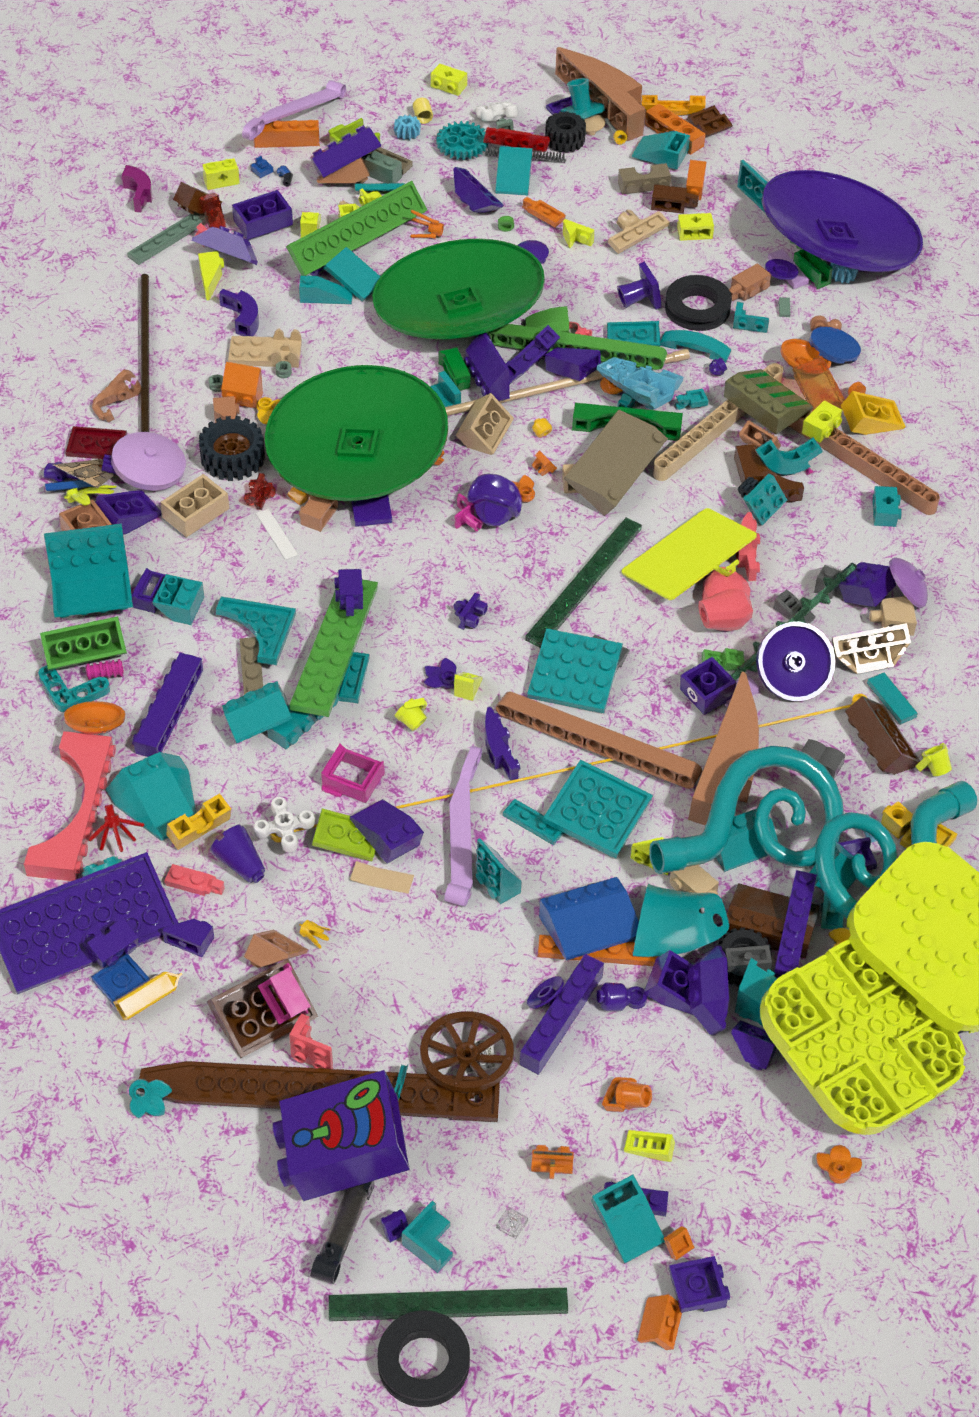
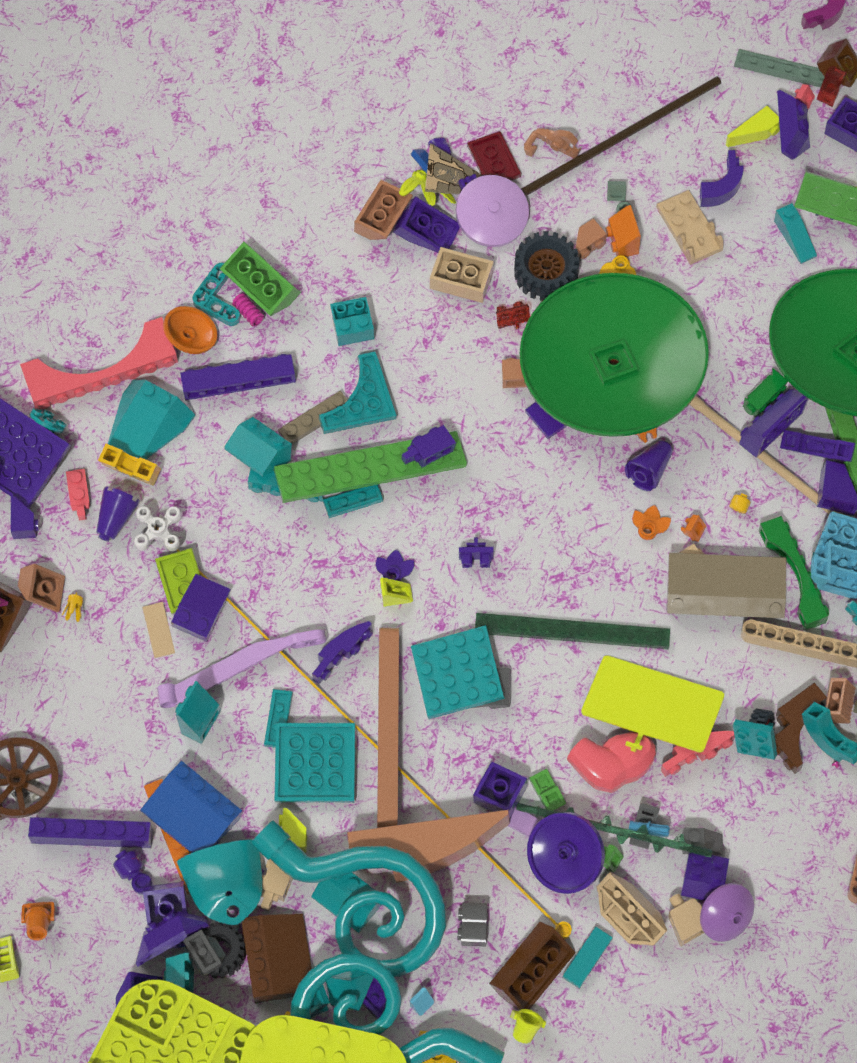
camera: 65 degrees right, 15 degrees up
(88, 570) = (329, 245): teal bracket -> none
(113, 821) = (87, 403): red plant -> none
(146, 590) = (350, 290): dark purple window -> none
(194, 377) = (616, 190): none -> sand green tile
(277, 534) = (478, 355): white sticker -> none
(280, 369) = (675, 248): sand green bush -> none
(340, 786) = (245, 570): dark pink piece -> none
(353, 273) = (831, 244): teal tile -> none
(412, 713) = (332, 565): neon yellow piece -> none
(447, 390) = (731, 400): teal panel -> none
(466, 514) = (587, 495): dark pink bracket -> none
(470, 462) = (649, 466): none -> dark purple cone
(485, 425) = (709, 455): tan slope -> none
(495, 499) = (617, 508): dark purple piece -> none
(545, 992) = (102, 809): dark purple dish -> none
(795, 923) = (231, 984): dark purple arch -> none
(810, 593) = (653, 829): none -> dark azure axle
(885, 506) = (832, 844): teal brick -> none
(896, 819) = (444, 1008): yellow brick -> none

